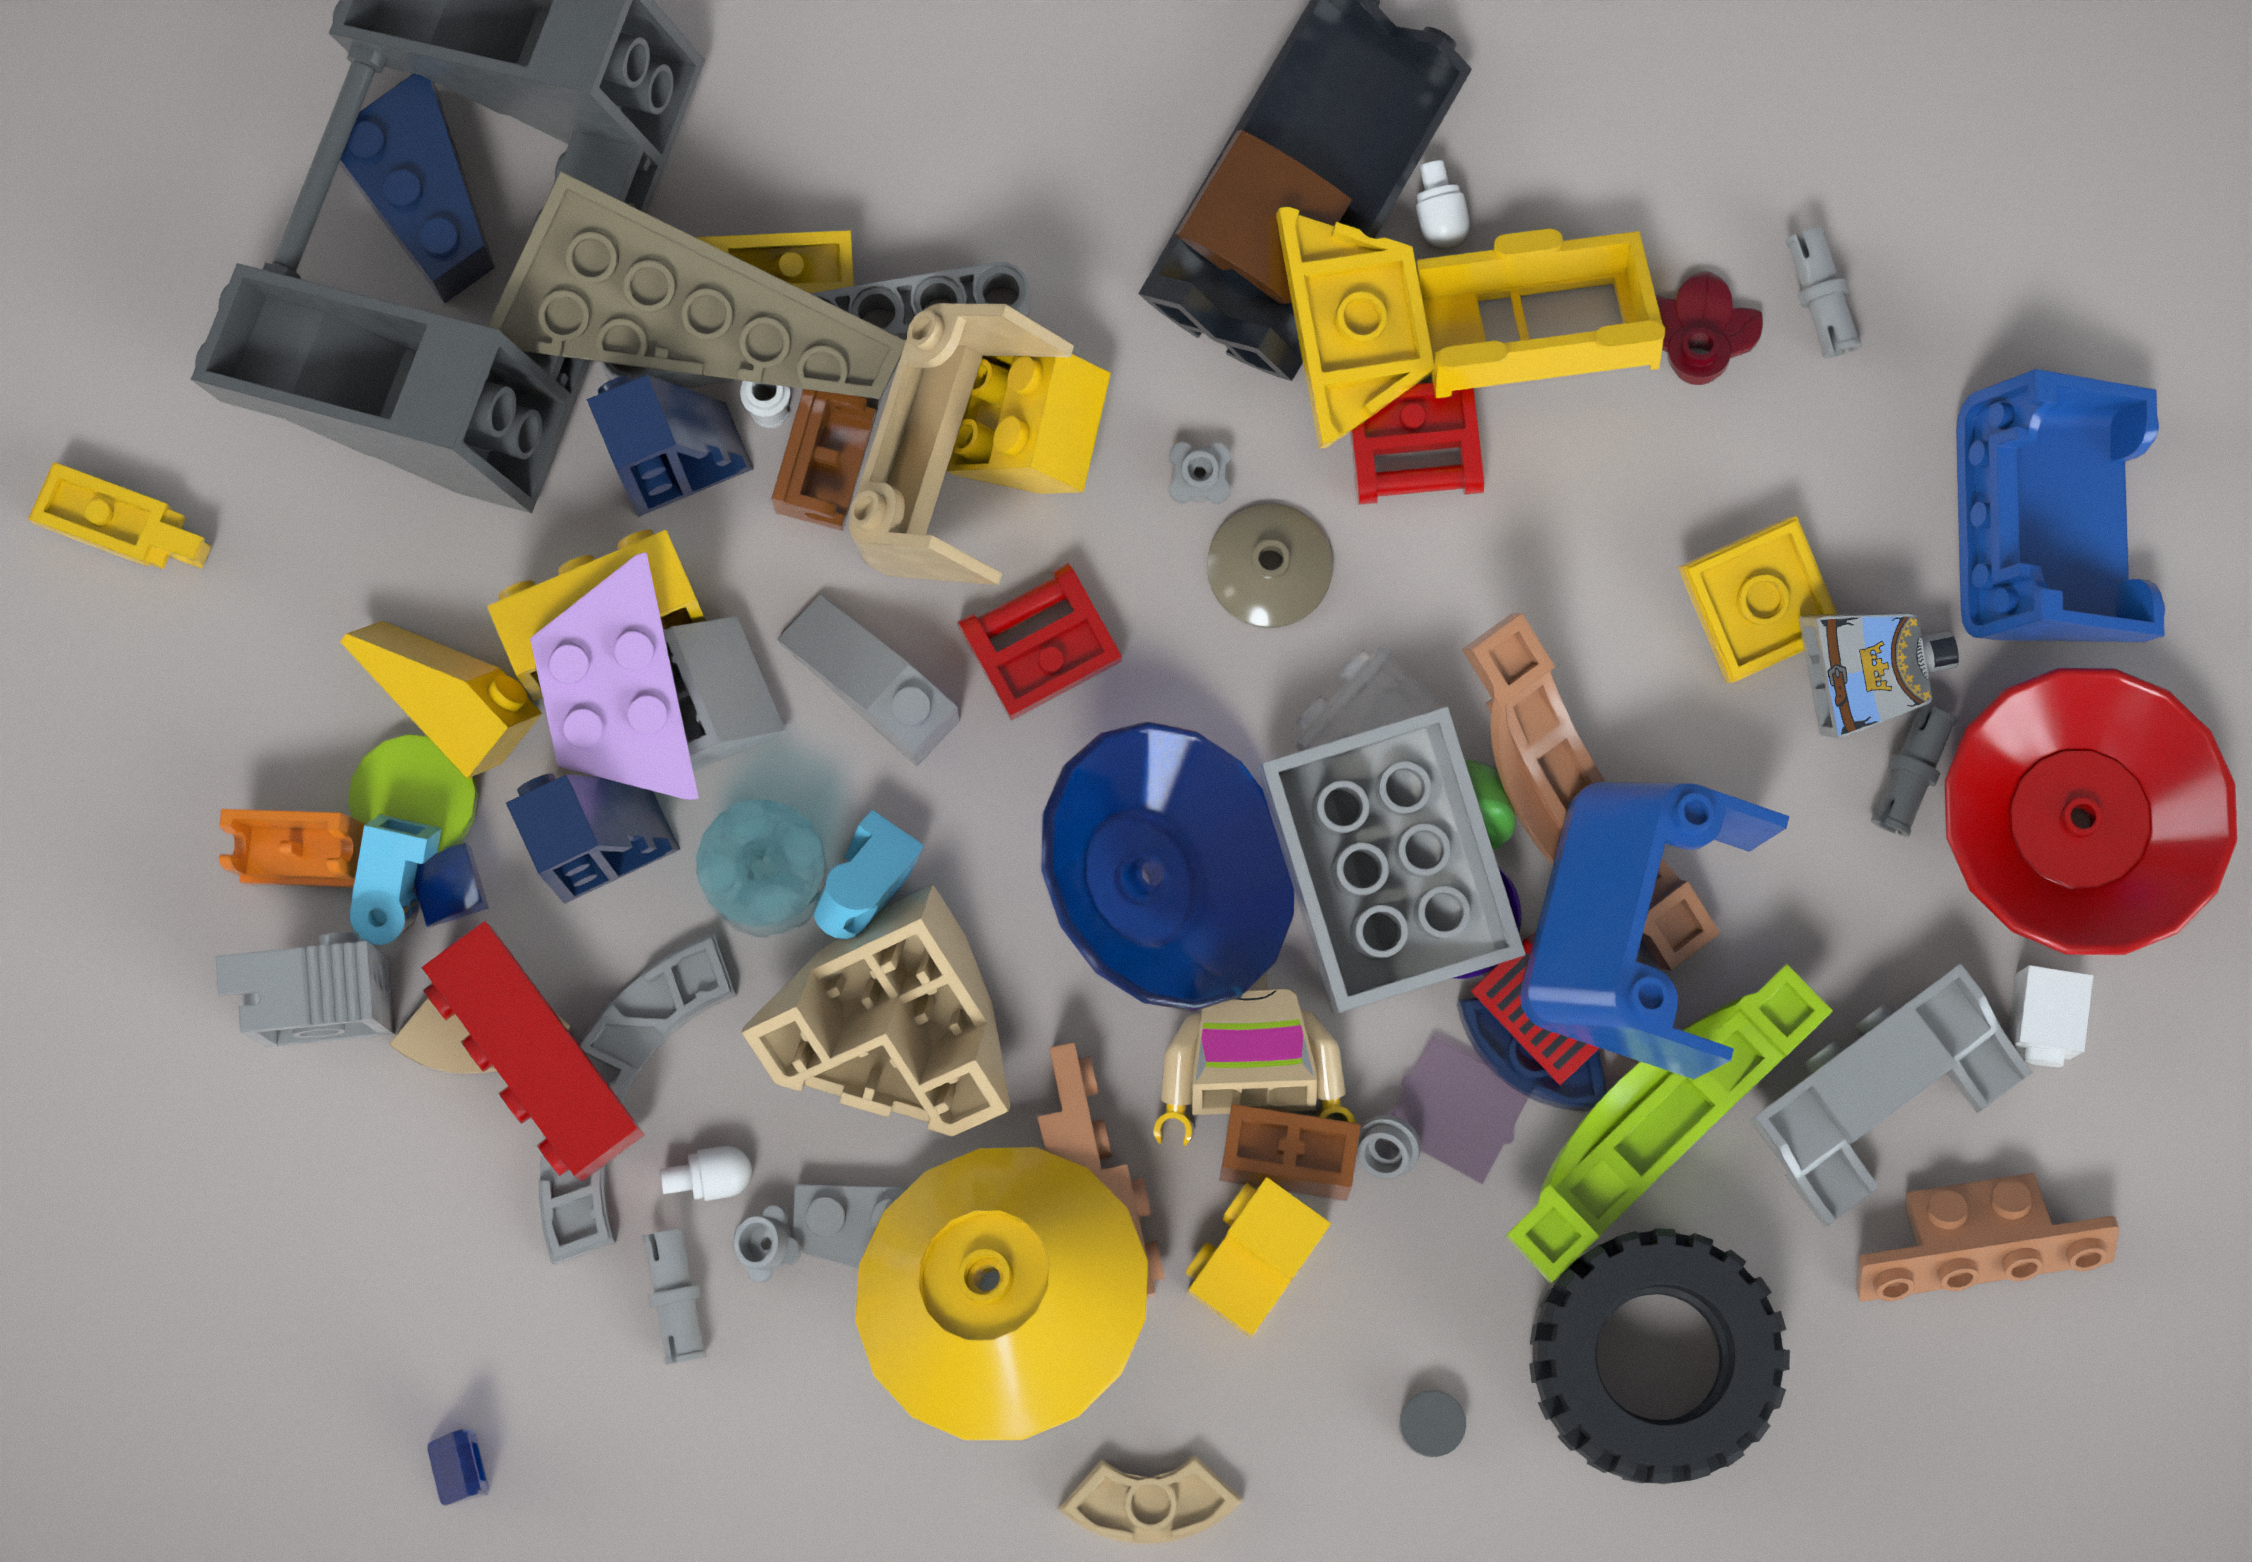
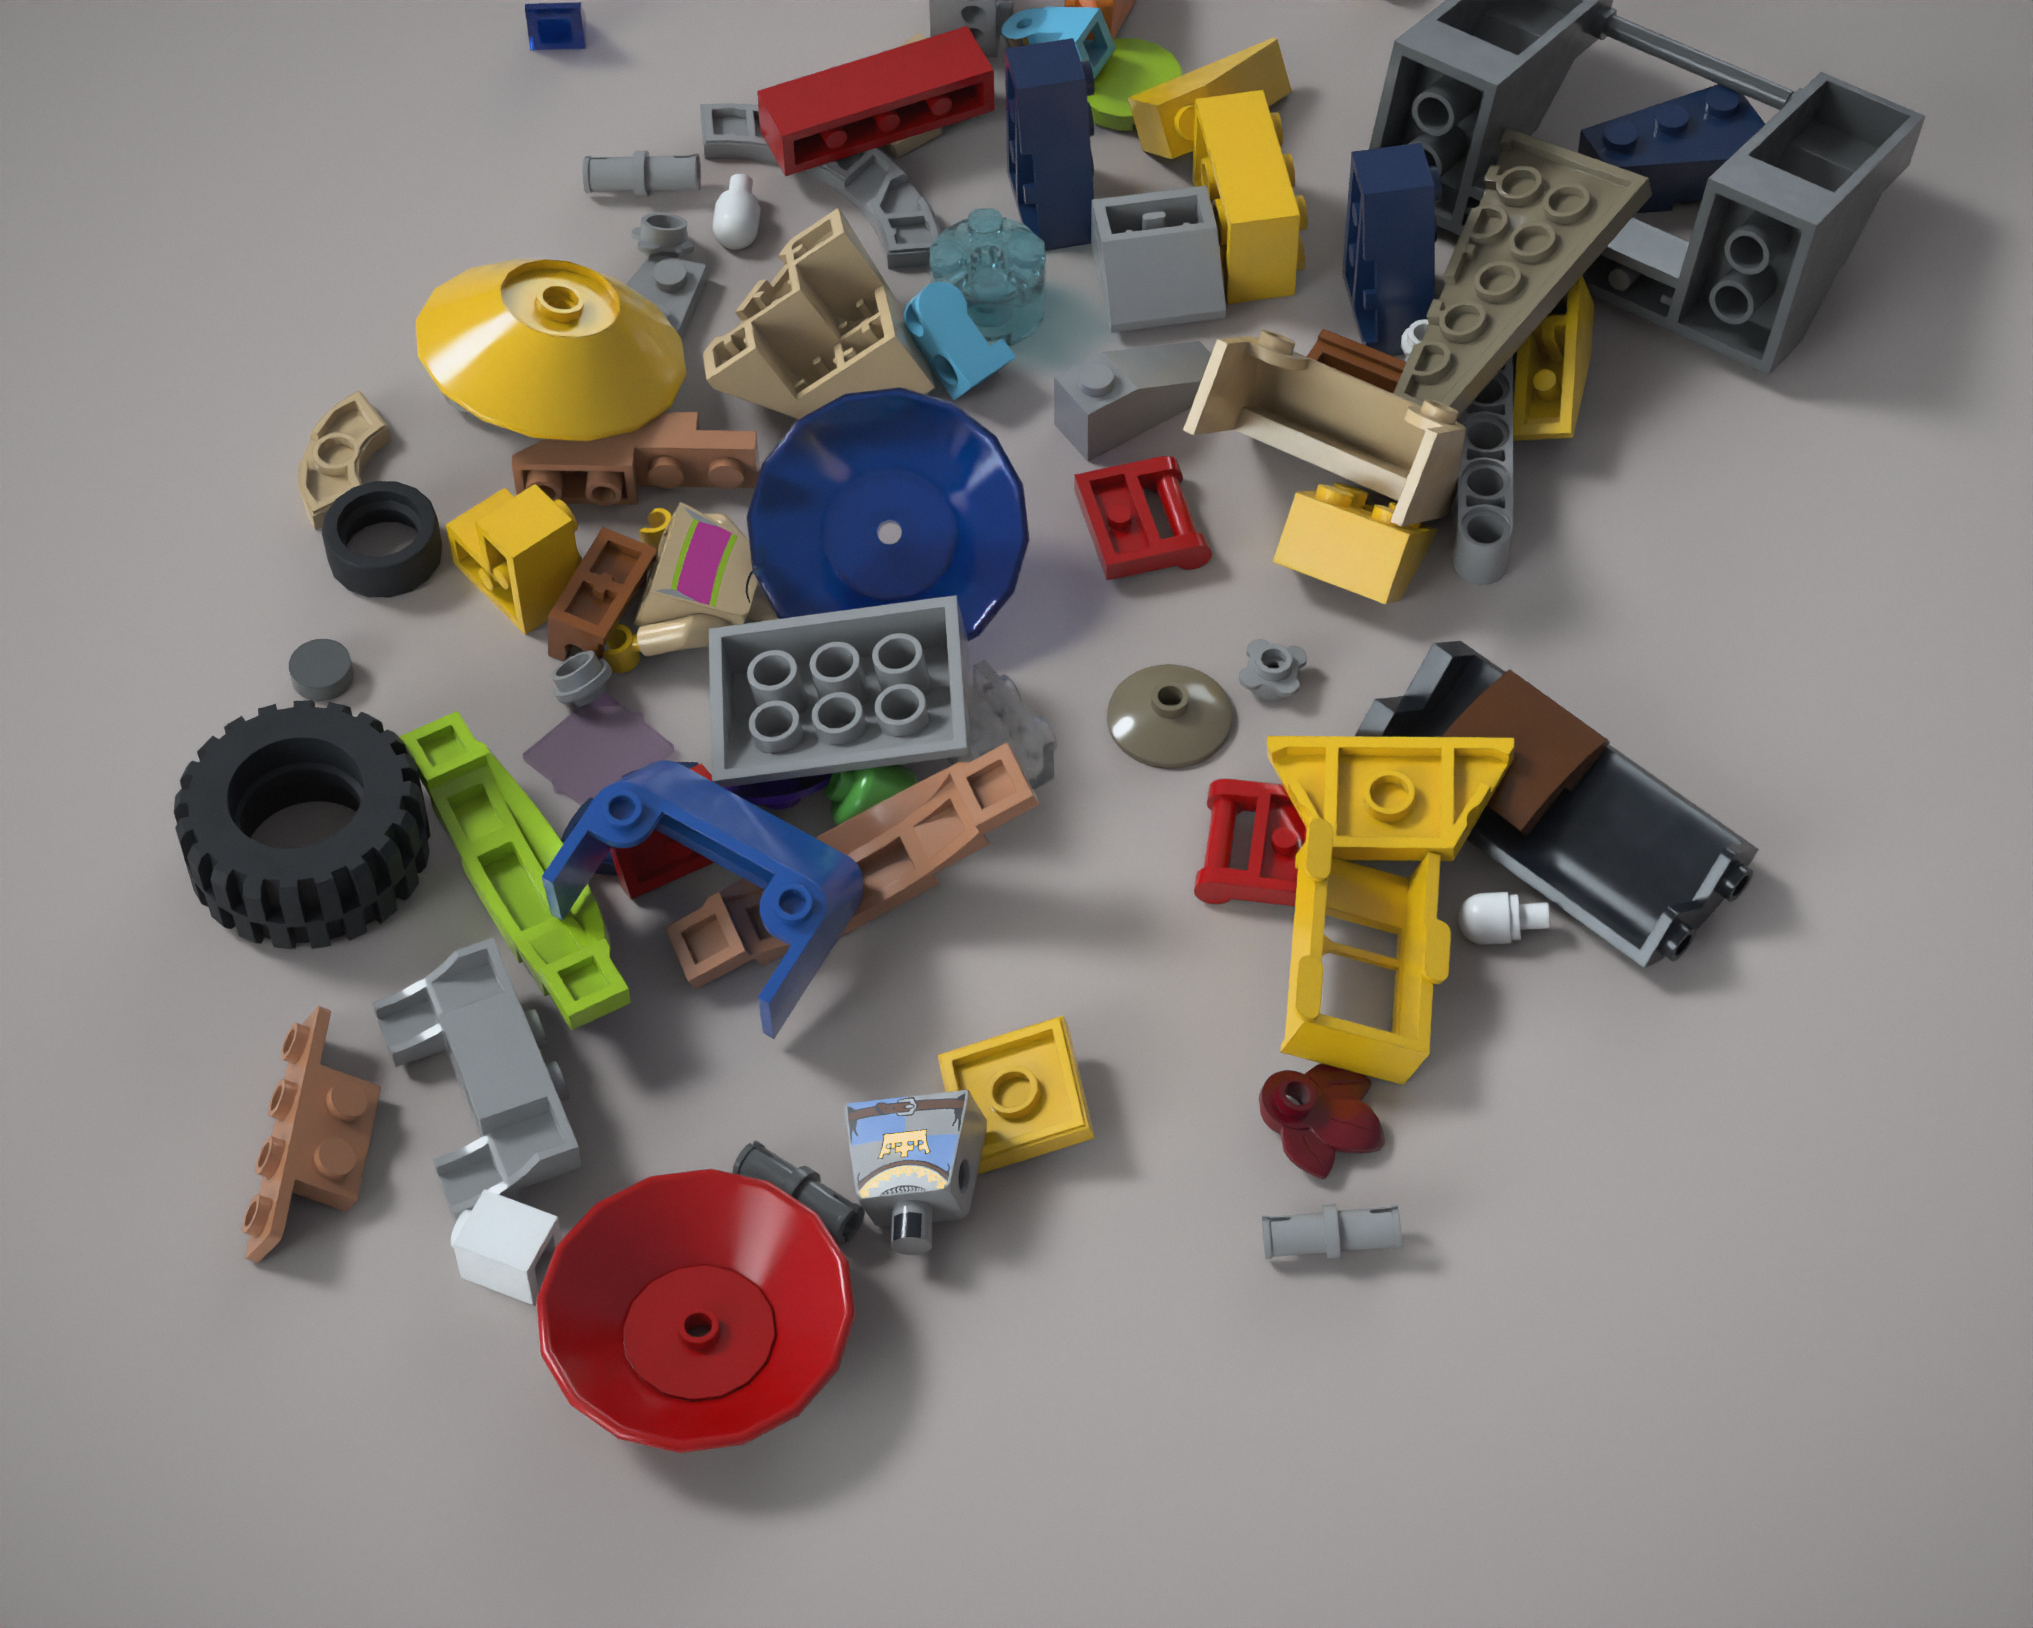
camera: 105 degrees right, 25 degrees down
(614, 687) = (1164, 160): lavender wing -> none
(1307, 1401) = (375, 504): none -> black tyre
(2050, 510) = (1021, 1387): blue windscreen -> none

